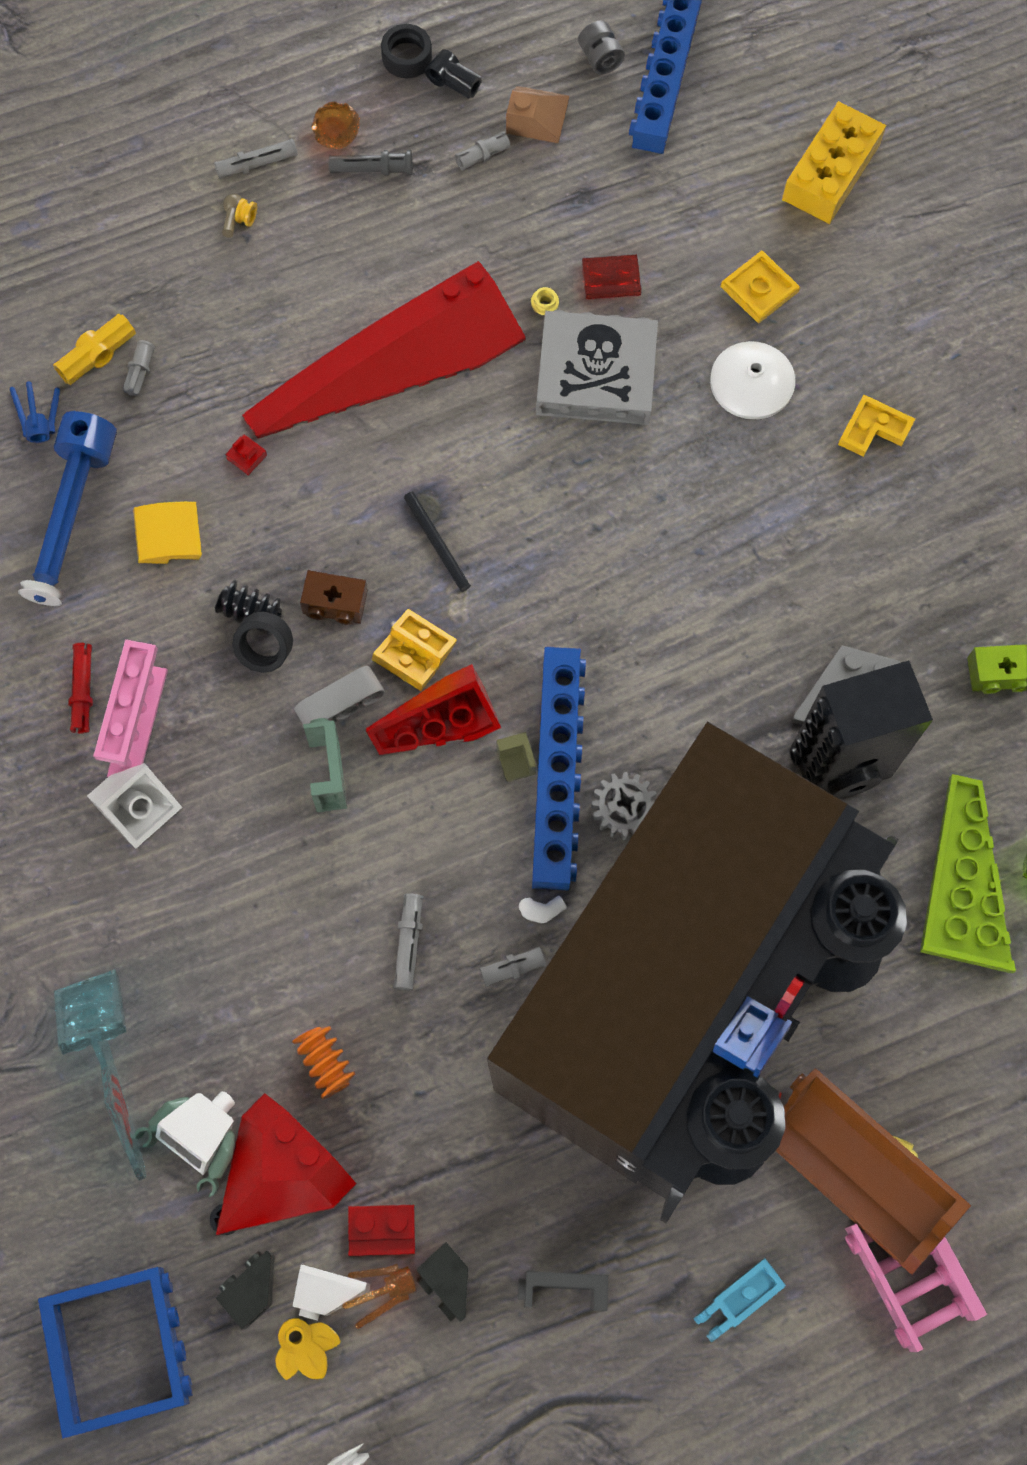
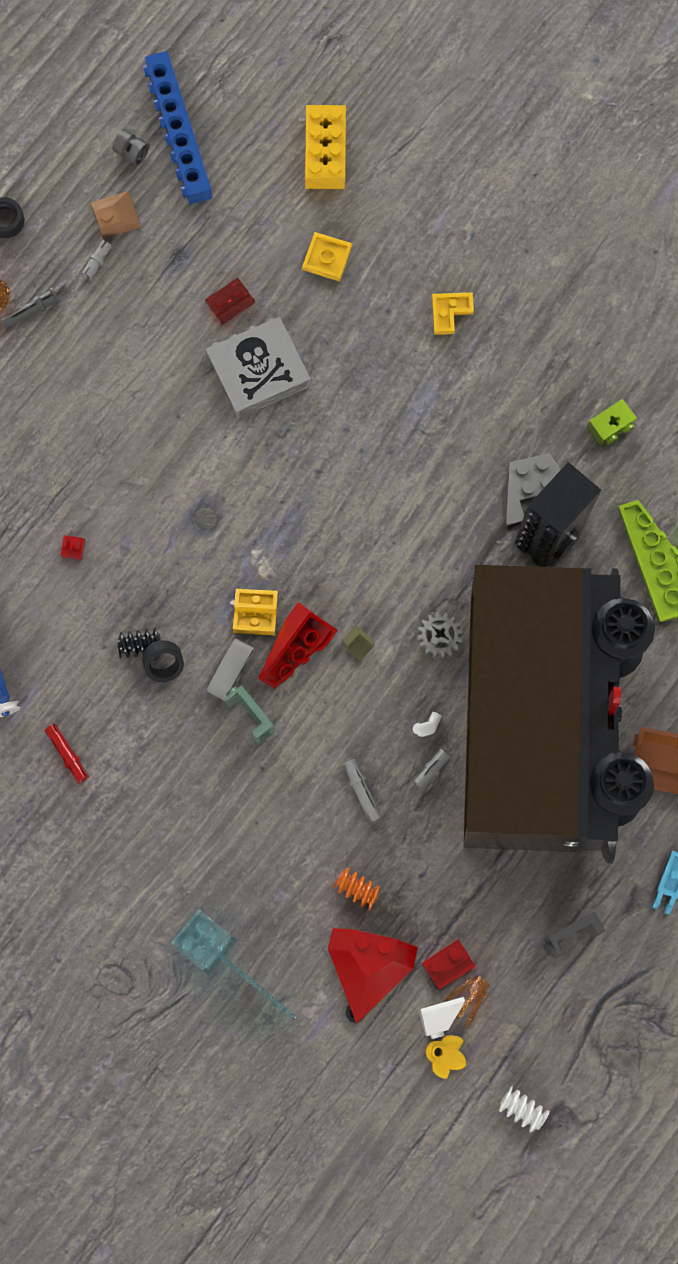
camera: 30 degrees left, 5 degrees up
(60, 1360) = (373, 1100): blue window -> none
(131, 708) = (112, 750): bright pink fence -> none
(135, 803) = (146, 804): white slope -> none
(167, 532) = (56, 625): yellow slope -> none
(196, 1132) = (309, 973): white torso -> none
(251, 1292) = (396, 1044): pearl dark grey slope -> none
(323, 587) = (176, 606): reddish brown brick -> none
(429, 337) = (142, 406): red wedge -> none
(437, 542) = (226, 535): black bar -> none
(447, 70) = (39, 217): black piece -> none
(448, 1278) = (503, 967): pearl dark grey slope -> none
(541, 295) = (198, 335): light yellow plate -> none
(558, 663) = (416, 702): blue brick -> none
(752, 393) = (357, 332): white dish -> none
(752, 1036) = (605, 732): blue plate -> none

